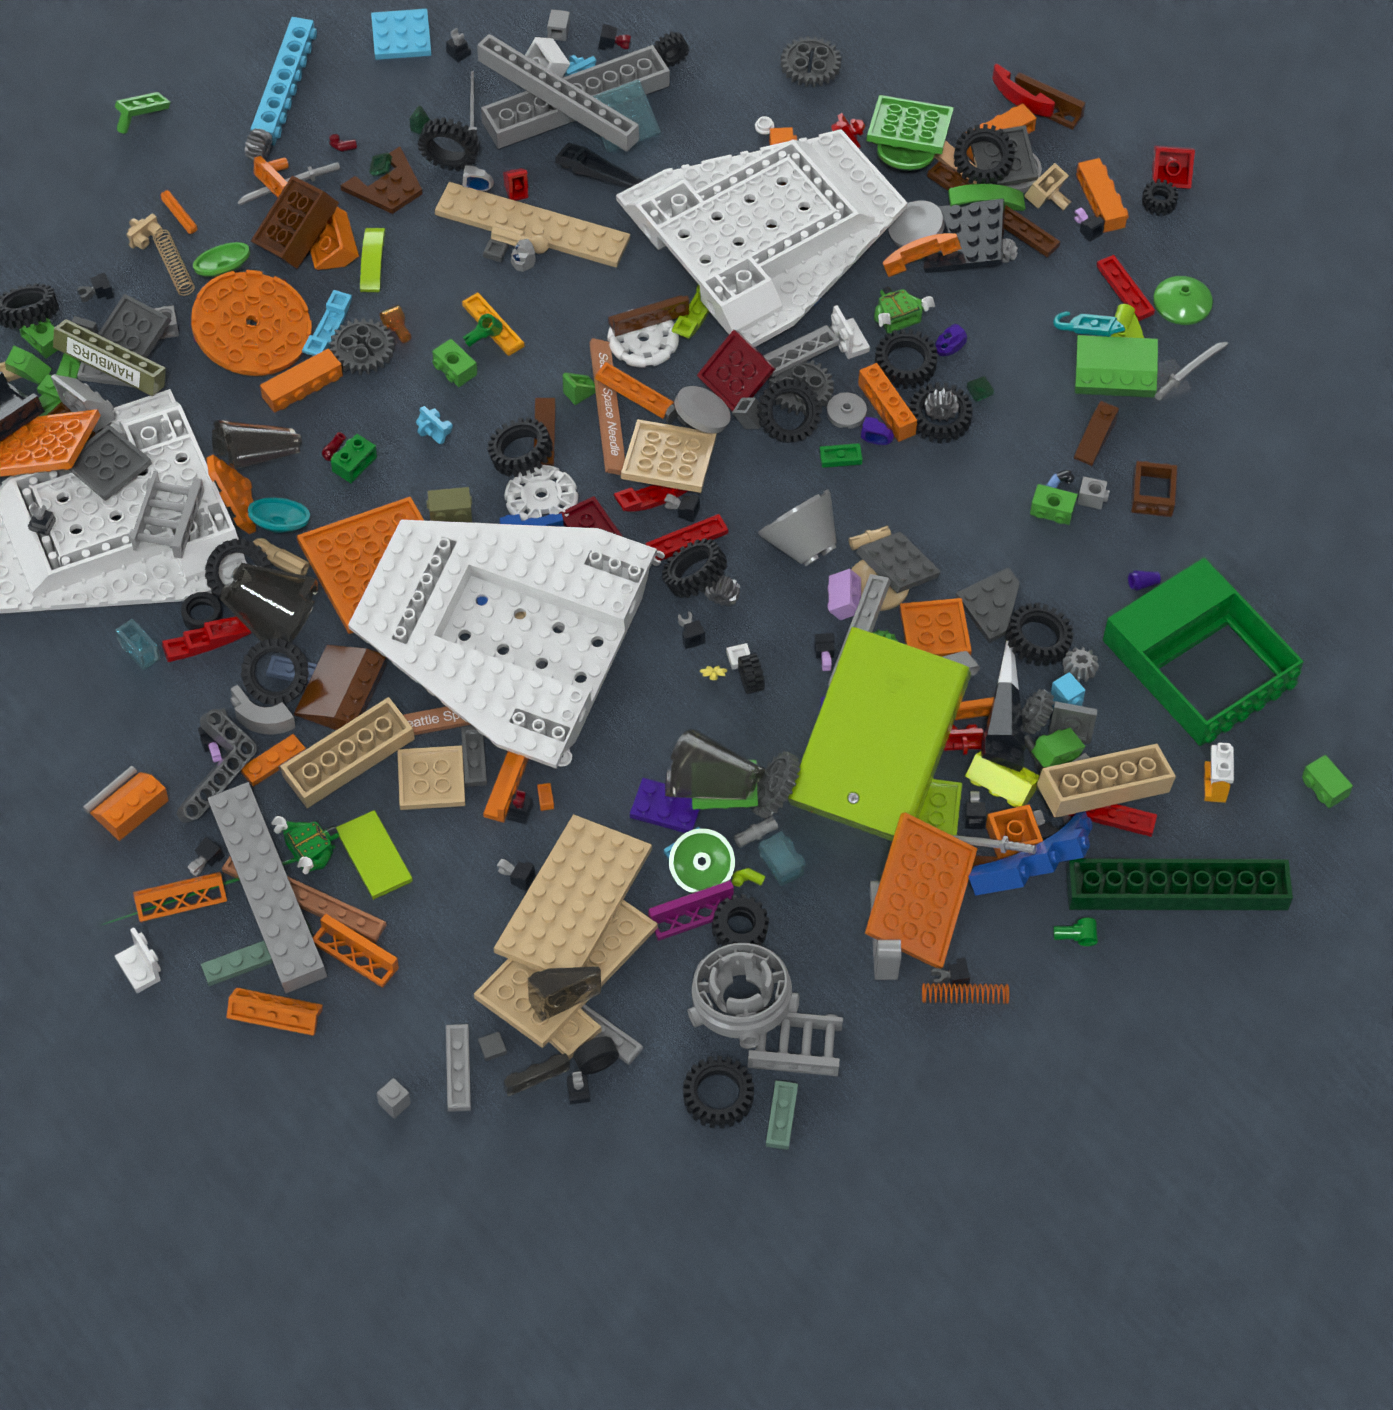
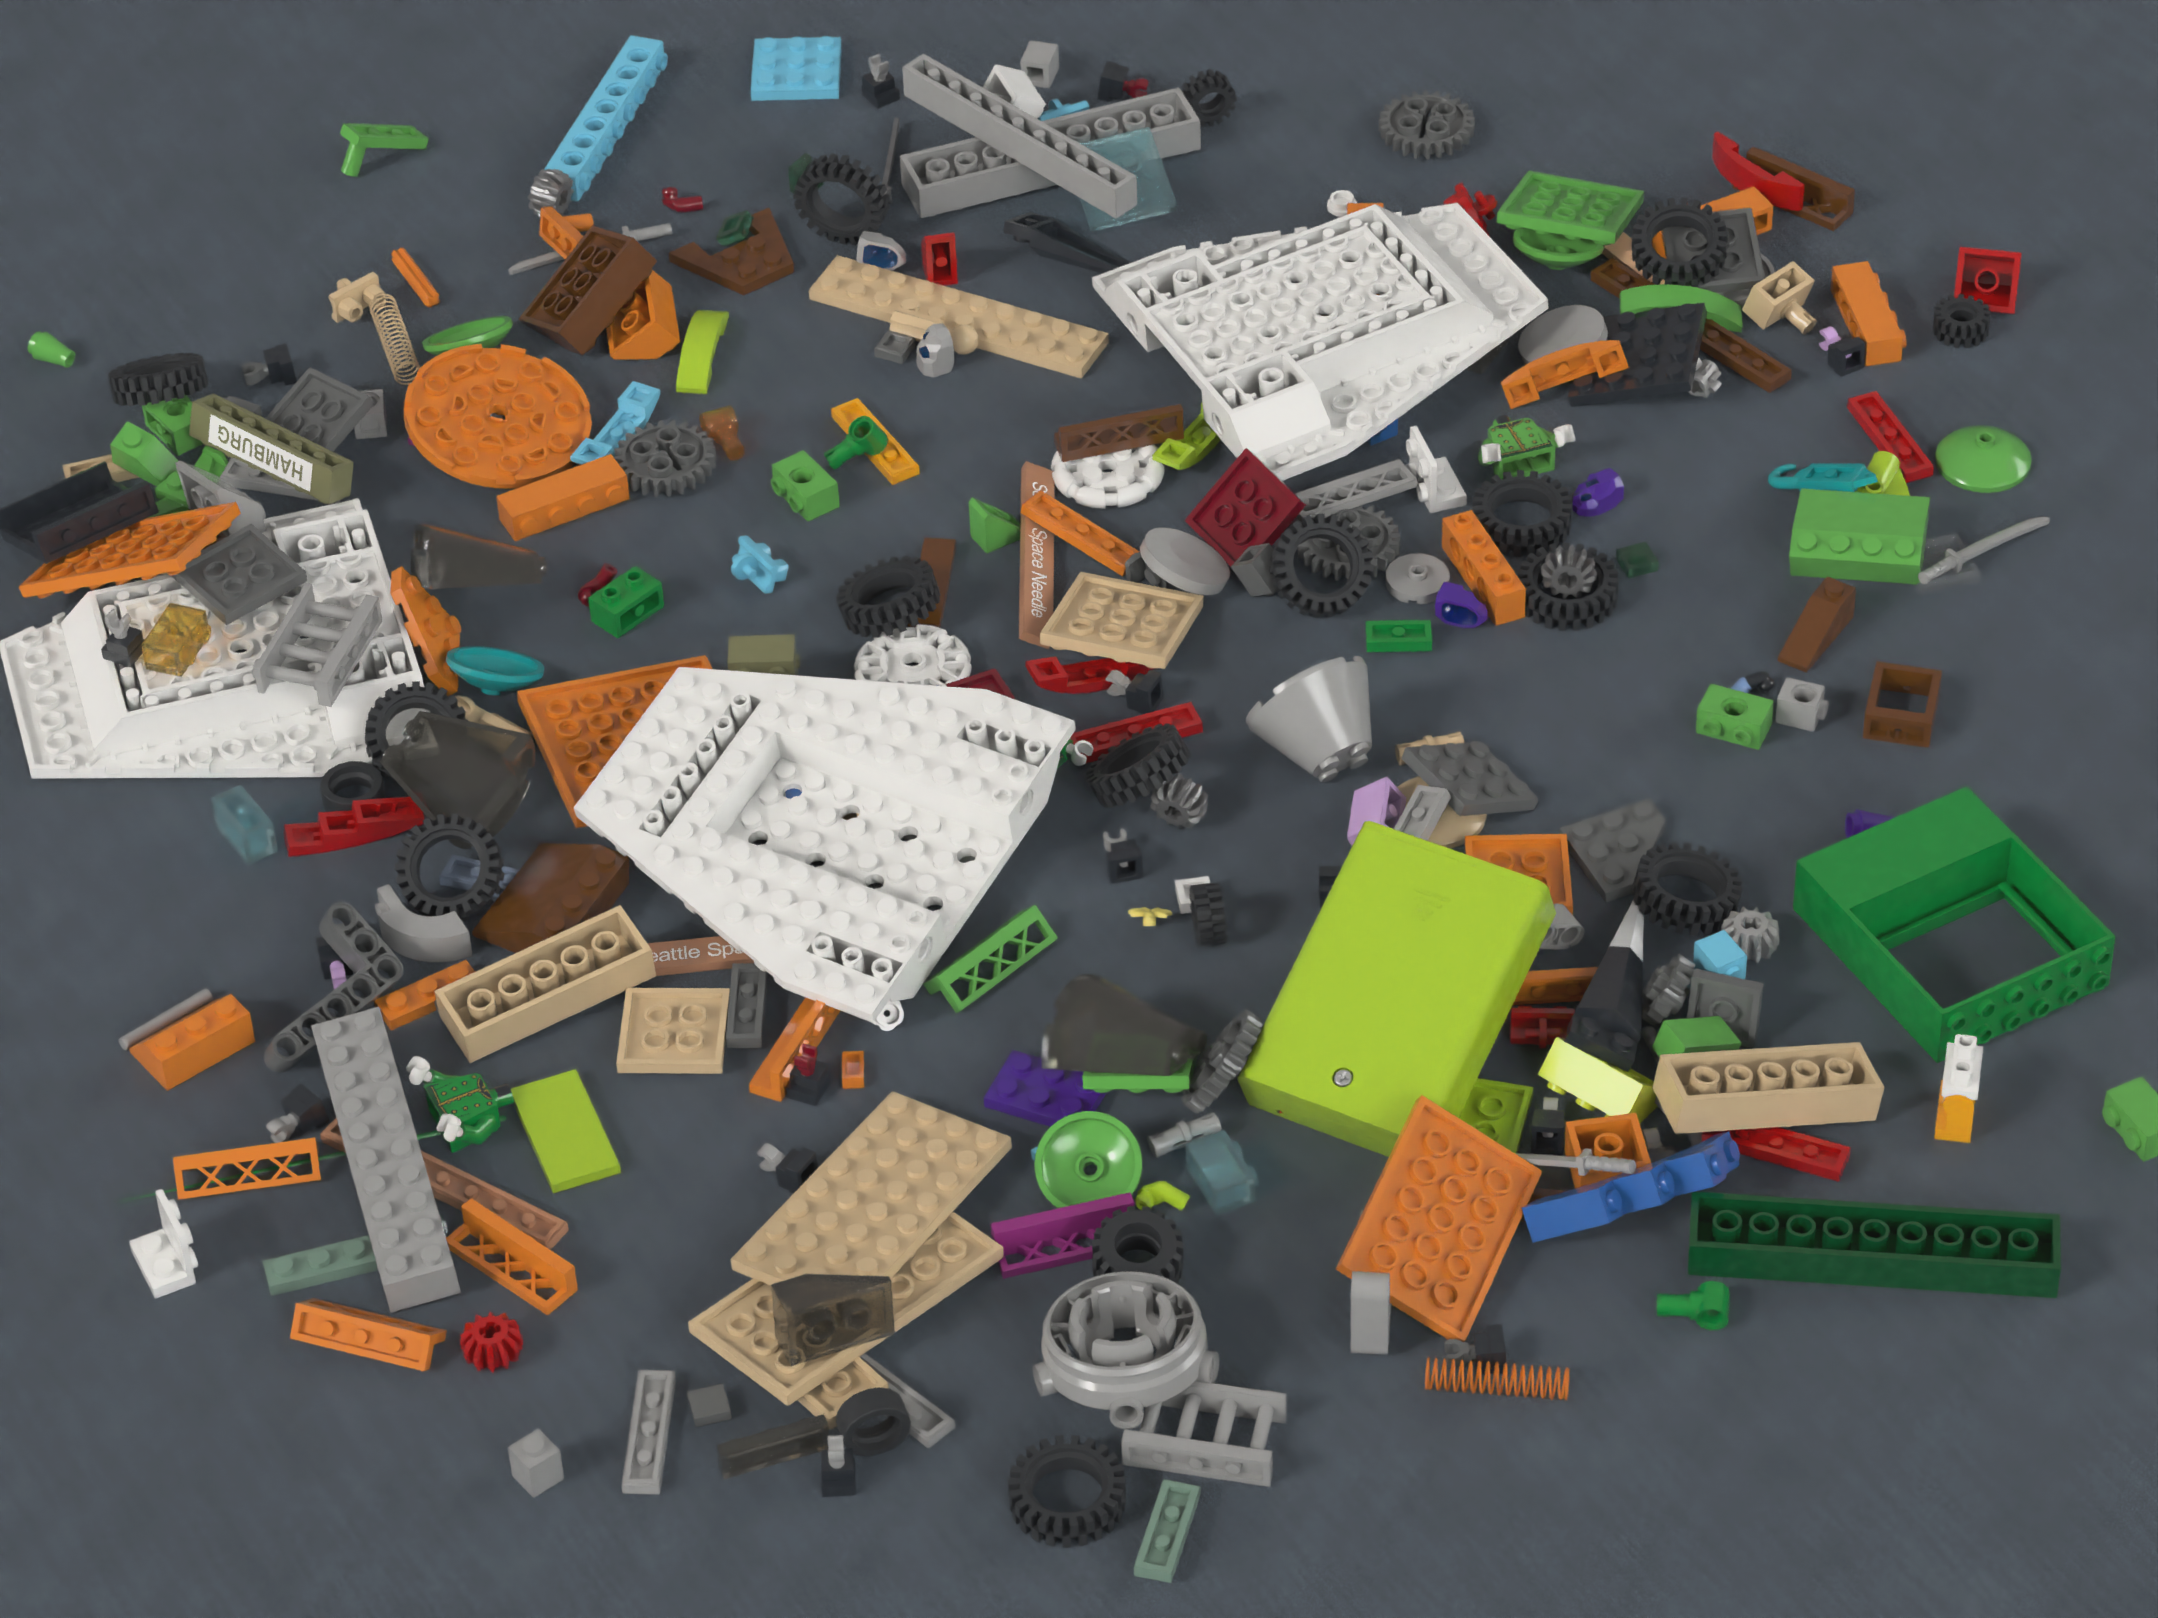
camera: 10 degrees right, 15 degrees down
(75, 516) = (176, 639): none -> clear yellow brick
(357, 1005) = (491, 1341): none -> red gear
(615, 705) = (980, 952): none -> bright green fence

